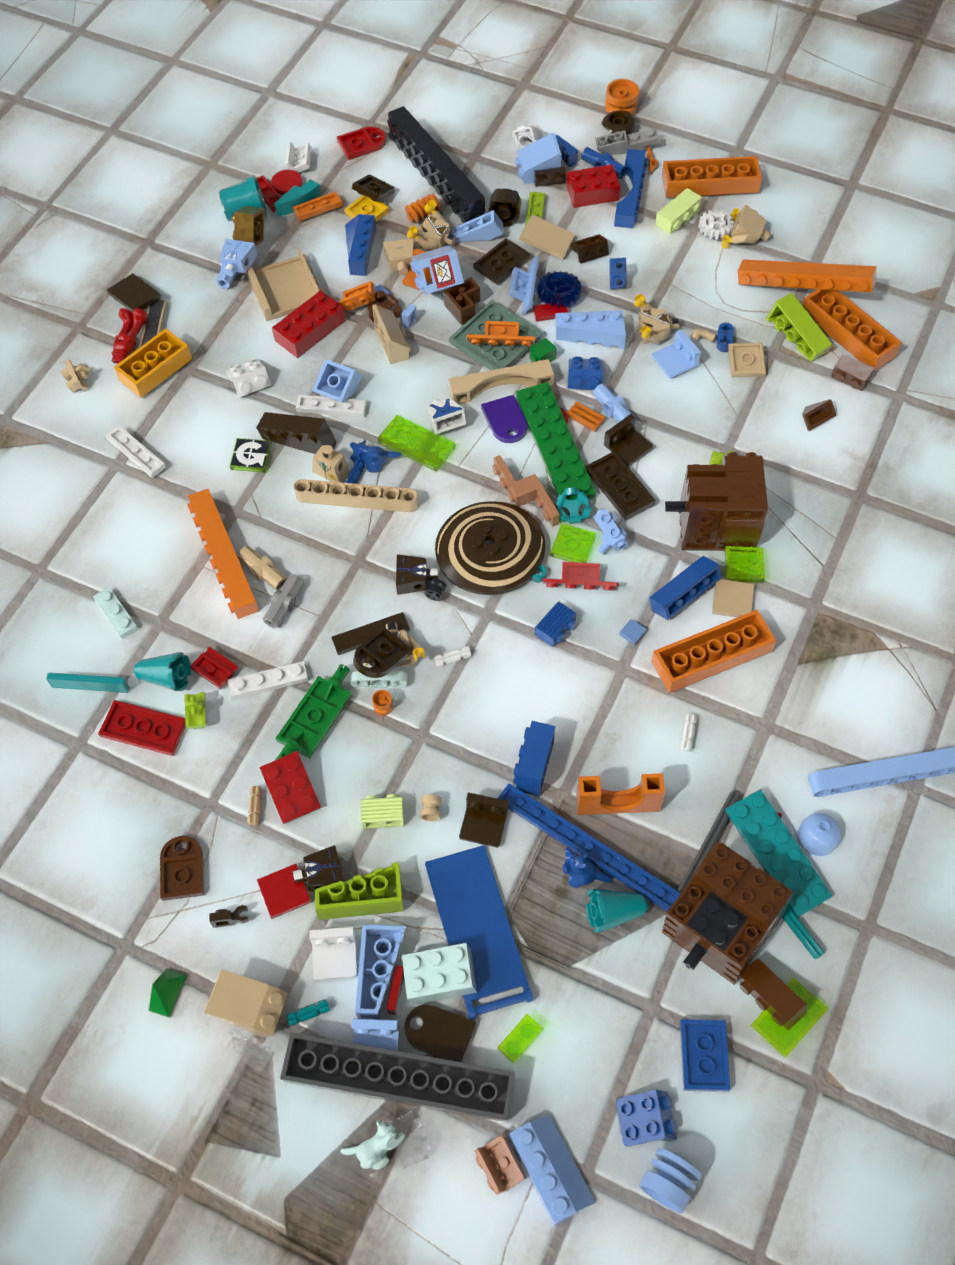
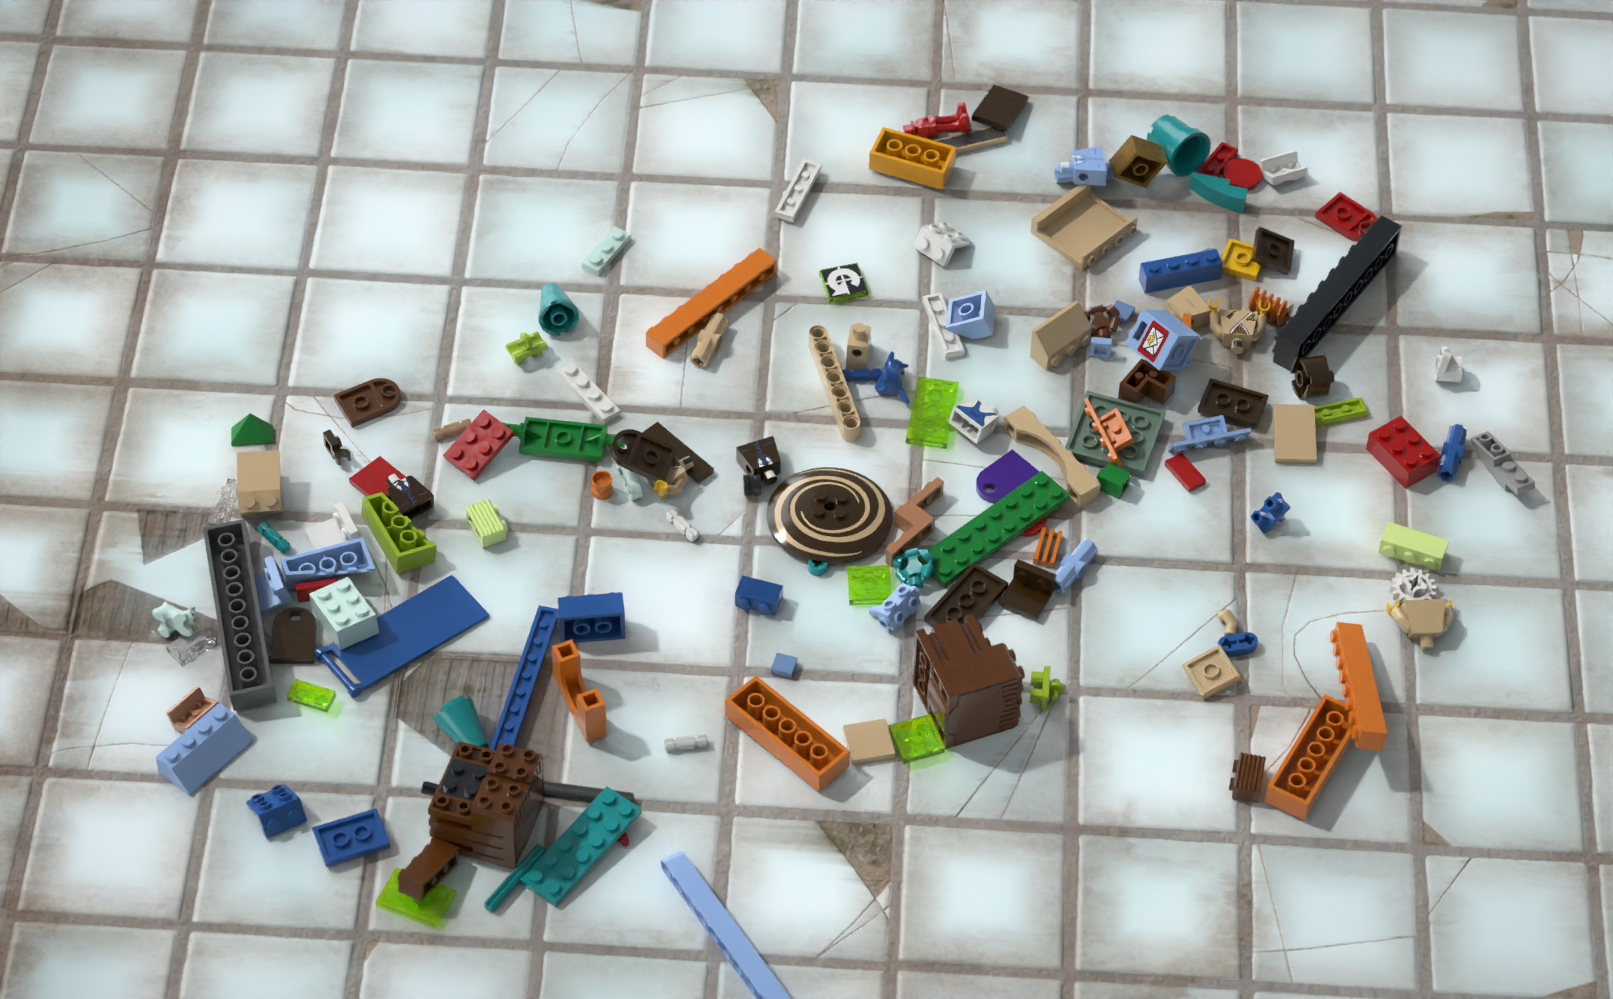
camera: 65 degrees right, 10 degrees down
(77, 376) = (866, 106): tan hips -> none
(87, 682) = (520, 260): teal tile -> none
(143, 727) = (494, 318): red tile -> none
(214, 667) = (580, 345): red plate -> none
(283, 601) = (679, 370): light grey piece -> none
(296, 431) = (885, 308): dark brown wedge -> none
(308, 324) = (1039, 265): red brick -> none
(317, 206) = (1219, 213): orange plate -> none
(358, 296) = (1099, 292): orange bracket -> none
(430, 807) = (507, 558): tan wheel -> none
(479, 229) = (1270, 368): light blue slope -> none
(484, 820) = (511, 604): dark brown bracket -> none
(538, 156) = (1411, 389): light blue slope -> none
(550, 176) = (1393, 405): dark brown plate -> none
(559, 289) = (1217, 467): clear blue gear -> none
(568, 152) = (1445, 413): blue slope -> none
(581, 870) = (492, 690): blue animal -> none
(582, 575) = (829, 600): red bracket -> none
(585, 373) = (1107, 523): blue bracket -> none
(590, 248) = (1302, 479): dark brown bracket -> none
(592, 327) = (1176, 515): light blue wedge -> none
(619, 121) = (1528, 446): dark brown hat -> none
(622, 95) = (1572, 436): orange wheel -> none
(626, 208) = (1384, 496): blue arch -> none
(651, 160) = (1489, 500): orange hand -> none
(653, 322) = (1214, 569): tan torso -> none
(672, 1176) = (225, 831): light blue wheel -> none
(679, 356) = (1177, 605): light blue bracket -> none
(685, 587) = (856, 691): blue brick -> none
(712, 176) = (1488, 561): orange brick -> none
(799, 327) = (1284, 707): lime wedge -> none
(818, 413) = (1166, 759): reddish brown slope -> none
(819, 834) = (618, 878): light blue cylinder -> none

